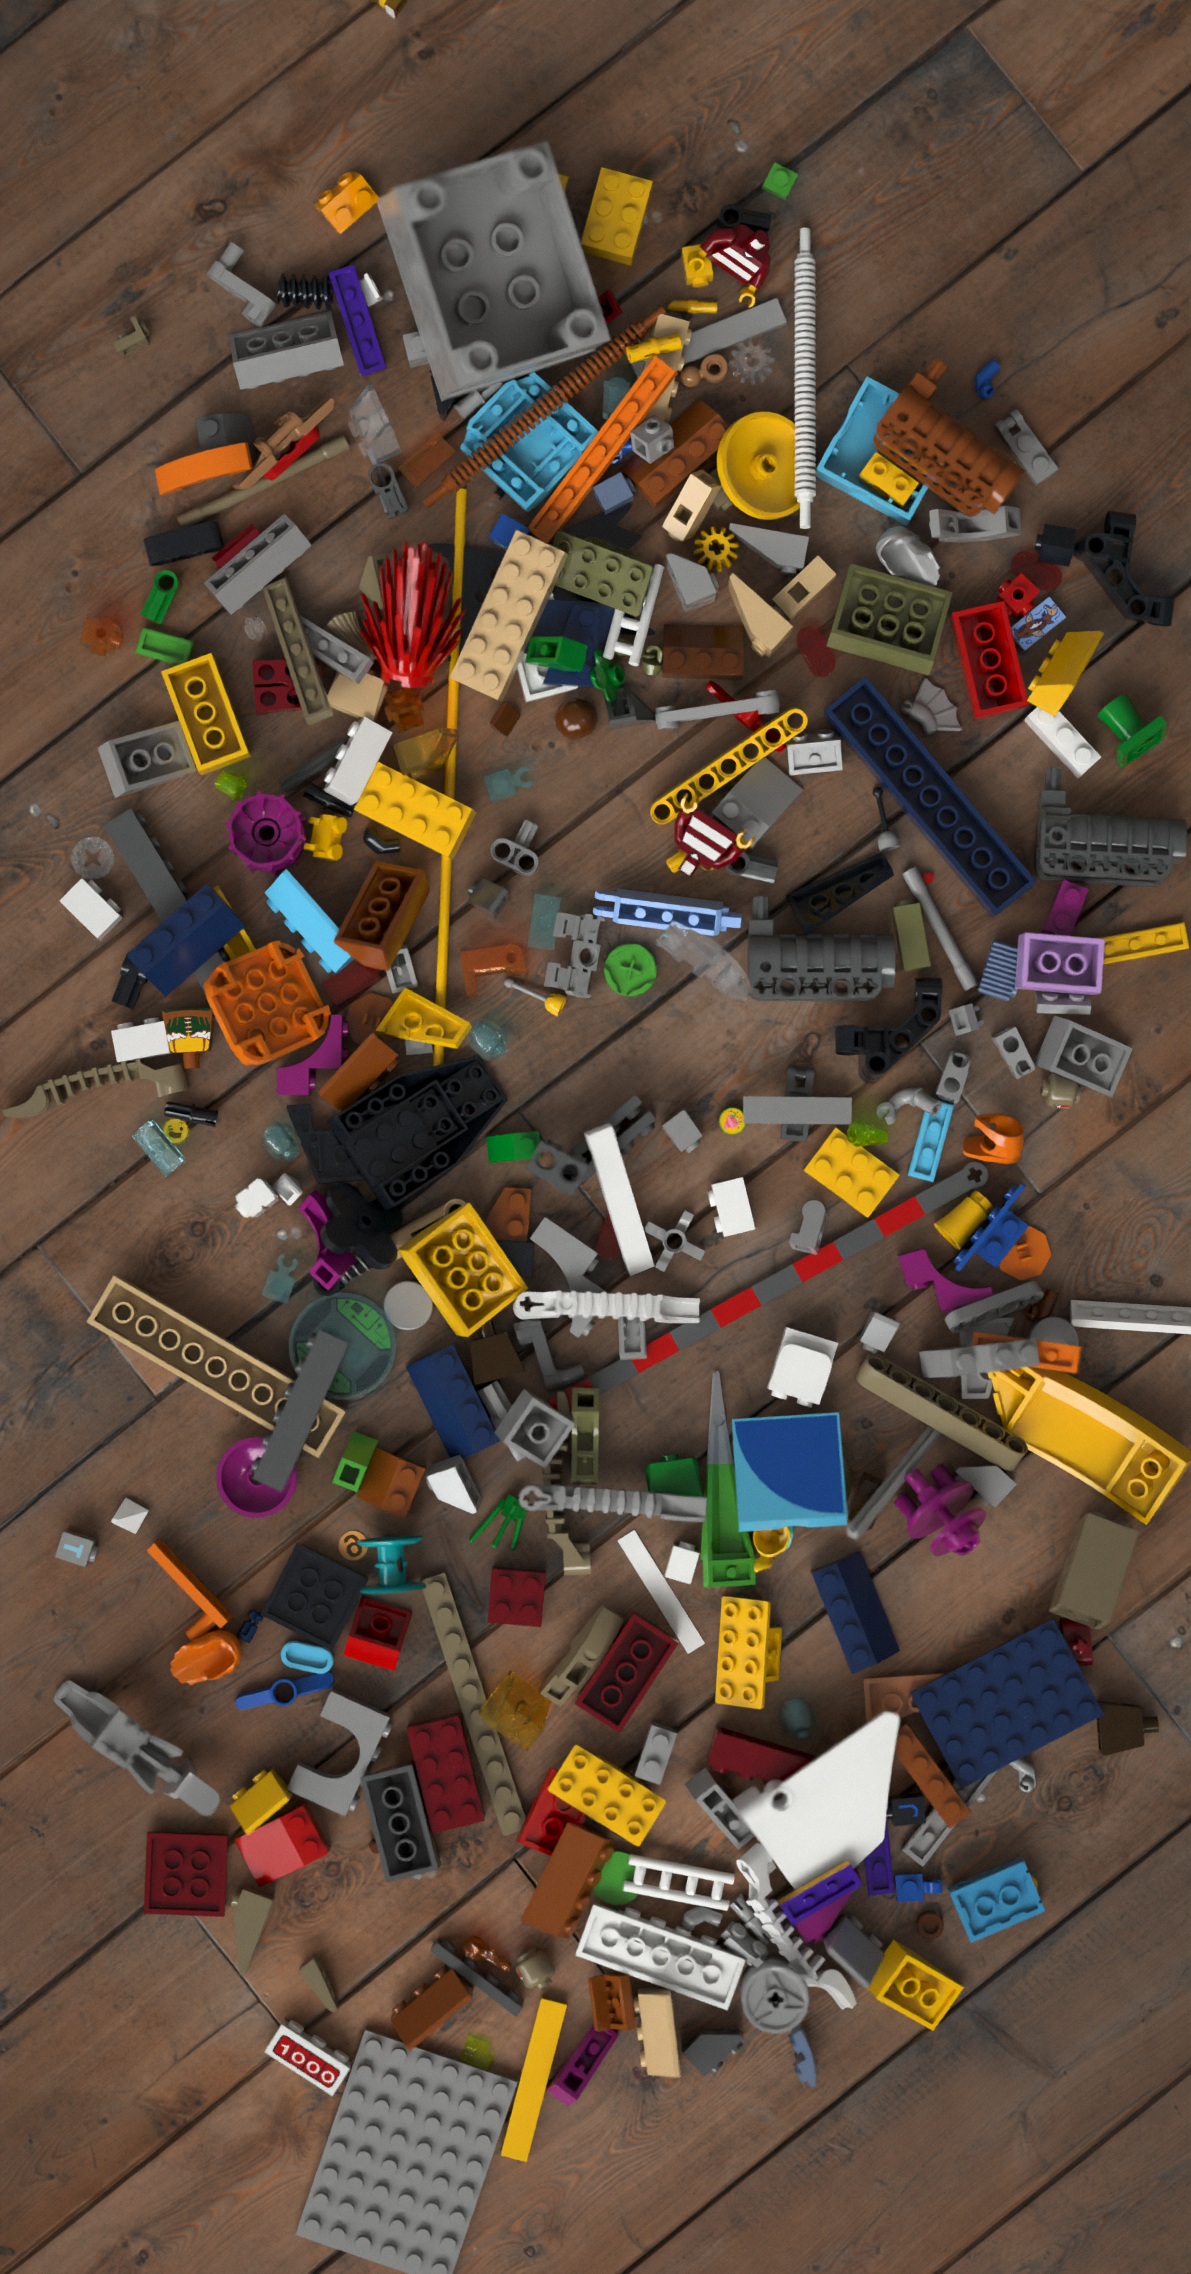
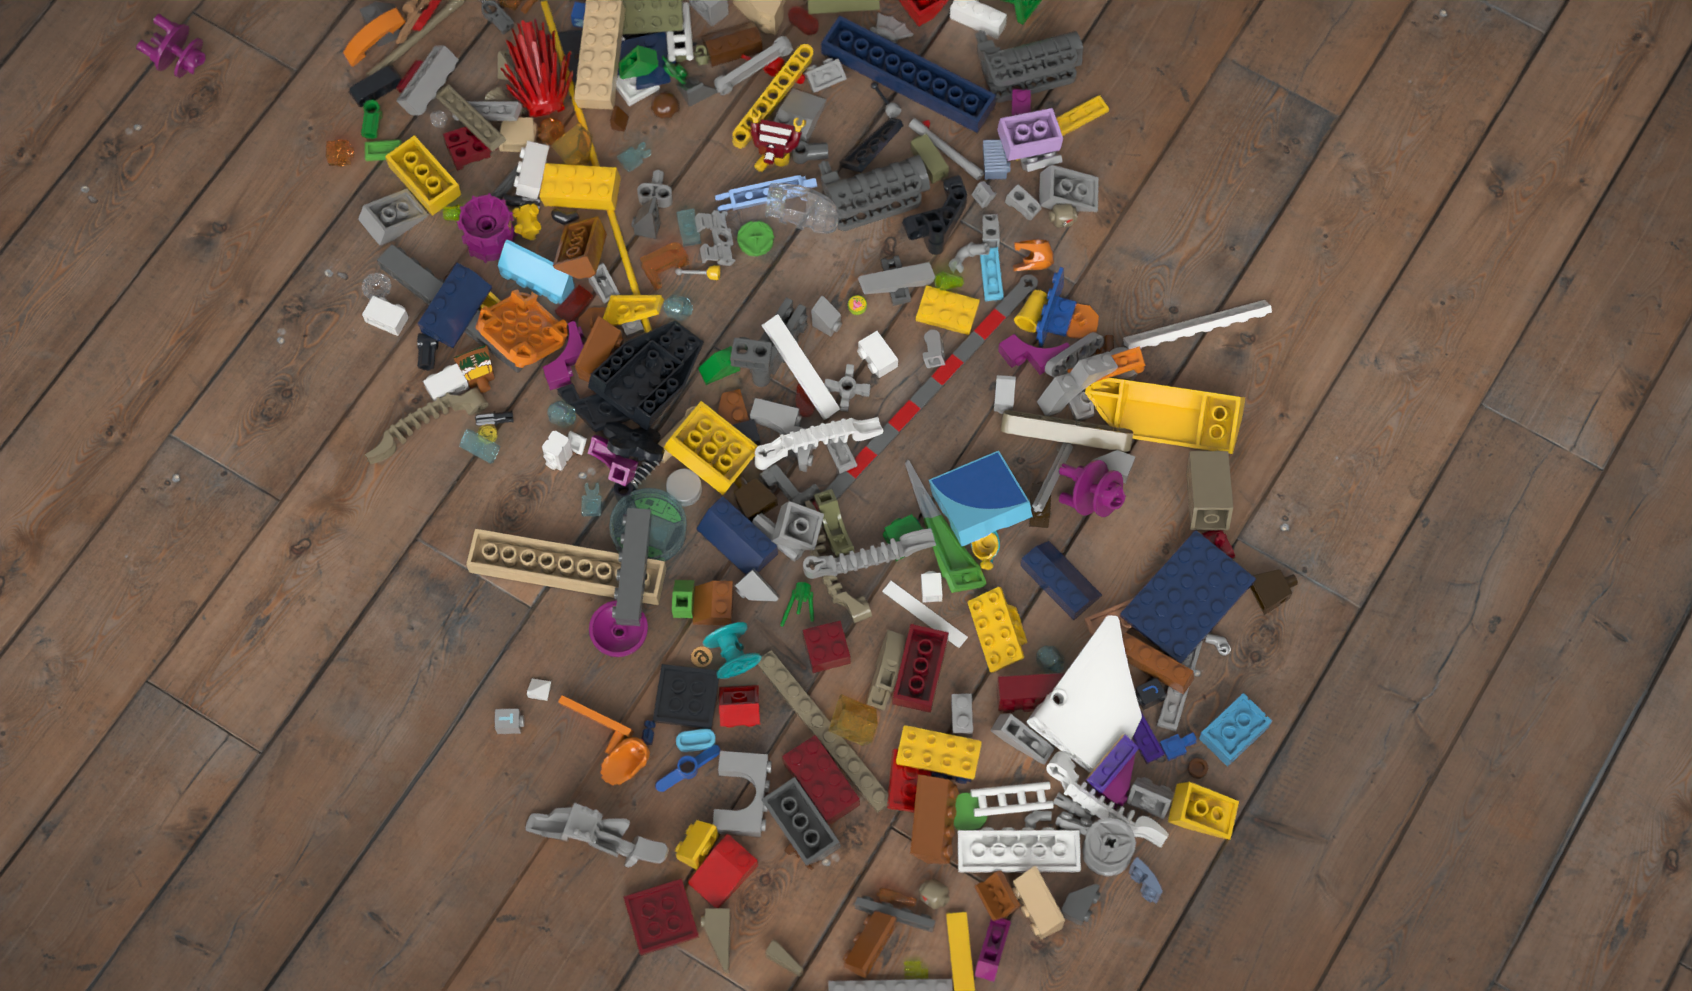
camera: 20 degrees left, 20 degrees down
(802, 1367) = (962, 435): white brick -> none

